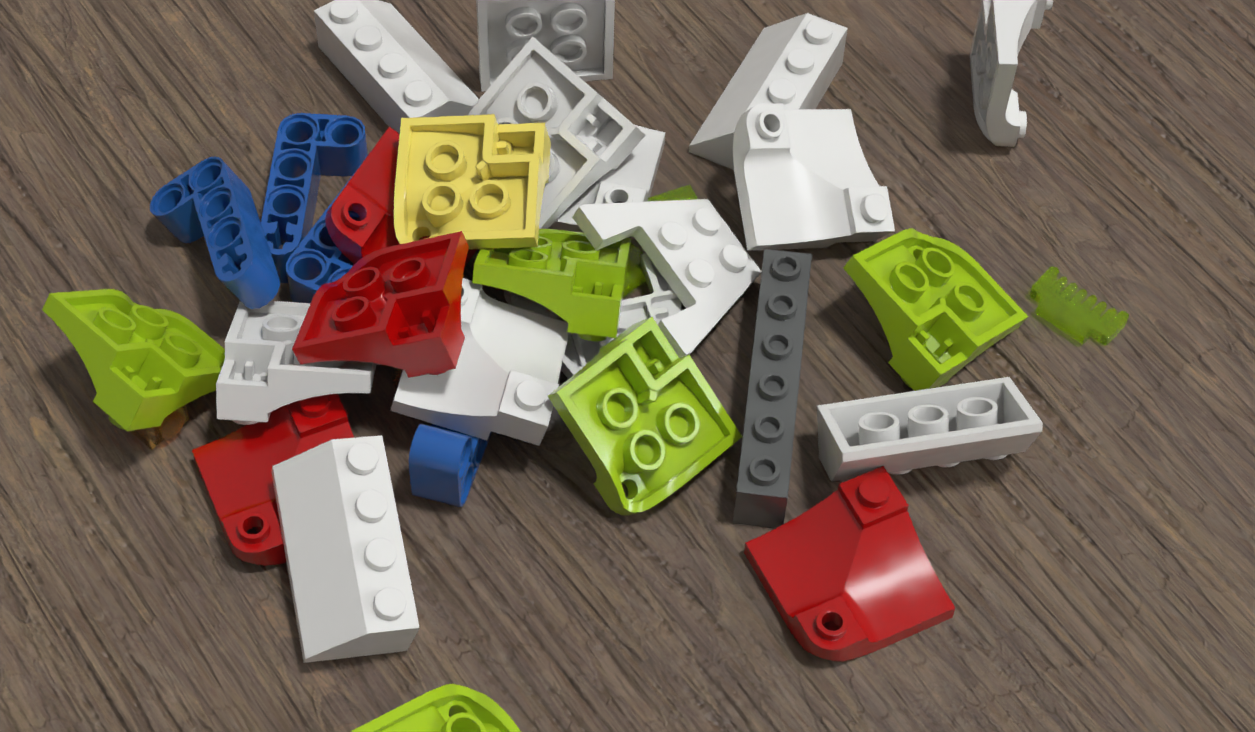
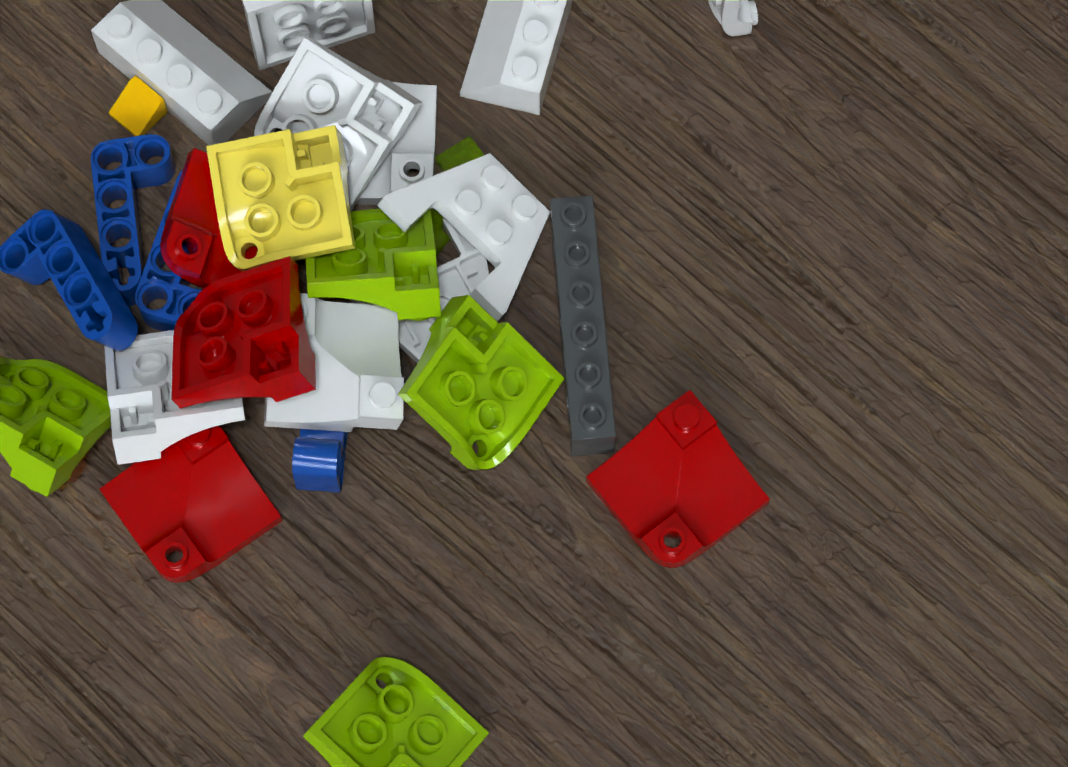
camera: 10 degrees left, 15 degrees up
(345, 95) = (138, 107): none -> yellow slope
(345, 551) = (256, 559): white slope -> none
(805, 180) = (573, 118): white slope -> none
(925, 428) = (717, 342): white slope -> none
(932, 305) = (705, 218): lime slope -> none
(1072, 316) = (825, 198): clear neon green piece -> none

